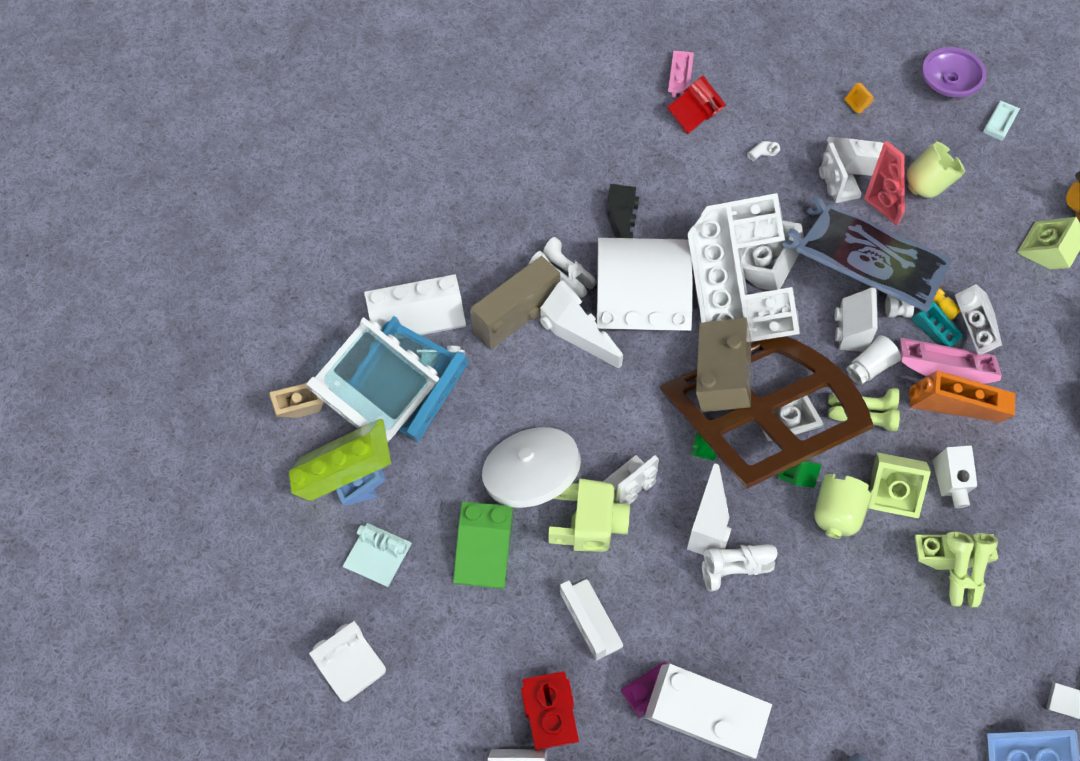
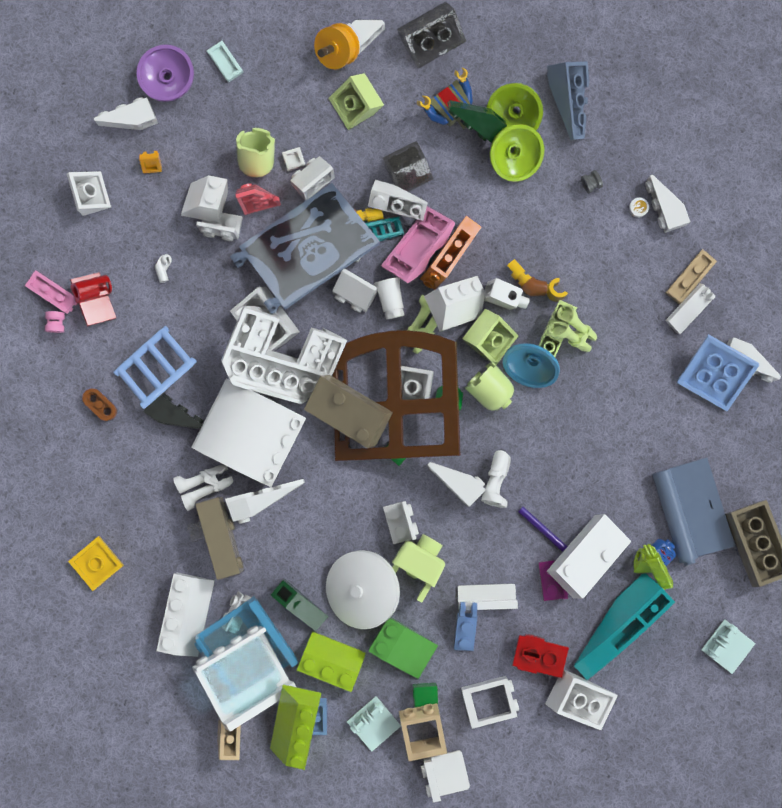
camera: 70 degrees left, 25 degrees up
(370, 620) = (426, 747): none -> tan window
(430, 475) = (331, 661): none -> lime slope
(431, 211) = (96, 563): none -> yellow plate
(437, 593) = (425, 694): none -> green panel
(447, 655) = (513, 705): none -> white window
(480, 411) = (299, 605): none -> slope
(542, 604) = (465, 628): none -> medium blue hinge
(594, 153) = (99, 406): none -> dark orange plate
(654, 84) = (52, 322): none -> bright pink wheel
(665, 191) = (174, 374): none -> light blue bar
(709, 643) = (544, 530): none -> dark purple bar
(795, 60) = (88, 192): none -> white slope
(891, 66) = (131, 116): none -> white slope
(896, 535) = (531, 365): none -> dark azure dish
(914, 421) = (456, 303): none -> white slope
(945, 237) = (312, 178): none -> white slope
(951, 216) = (293, 159): none -> white tile
(985, 506) = (533, 286): none -> yellow piece
(1023, 318) = (408, 167): none -> clear smoke slope

